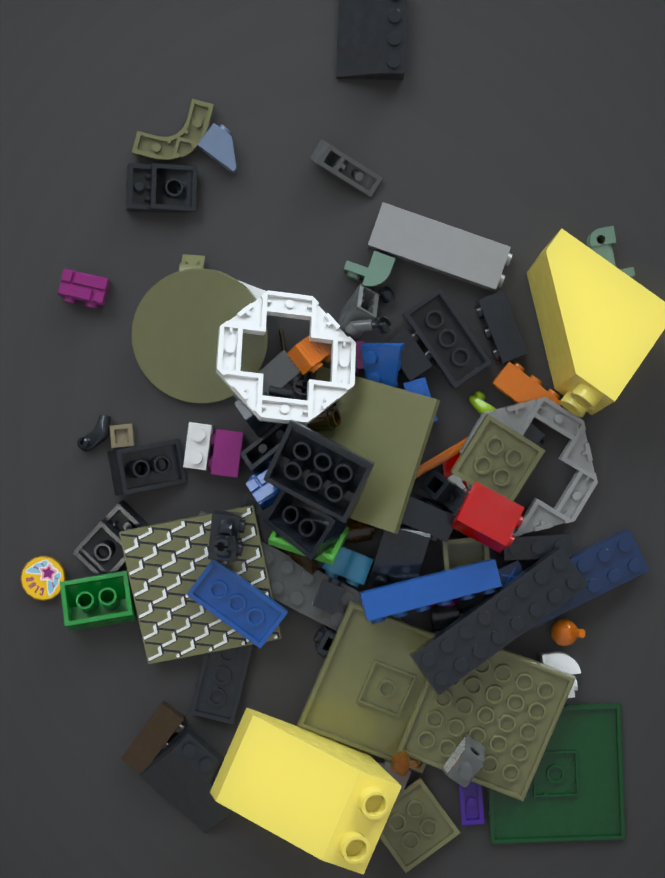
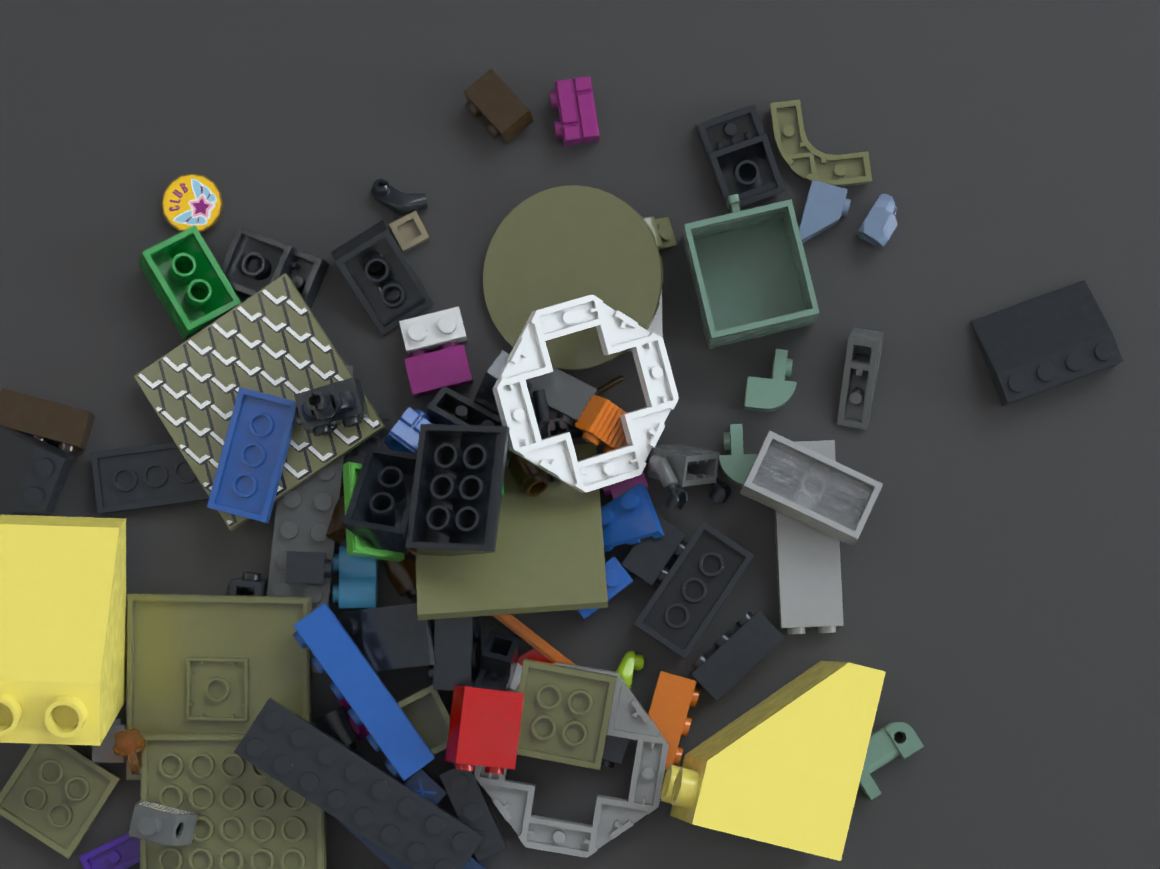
camera: 70 degrees right, 5 degrees down
(59, 340) = (498, 106): none -> dark brown brick
(244, 111) = (879, 222): none -> sand blue rock
(245, 212) = (749, 273): none -> sand green piece
(333, 230) = (772, 393): none -> sand green brick
(411, 230) = (811, 488): none -> clear brick

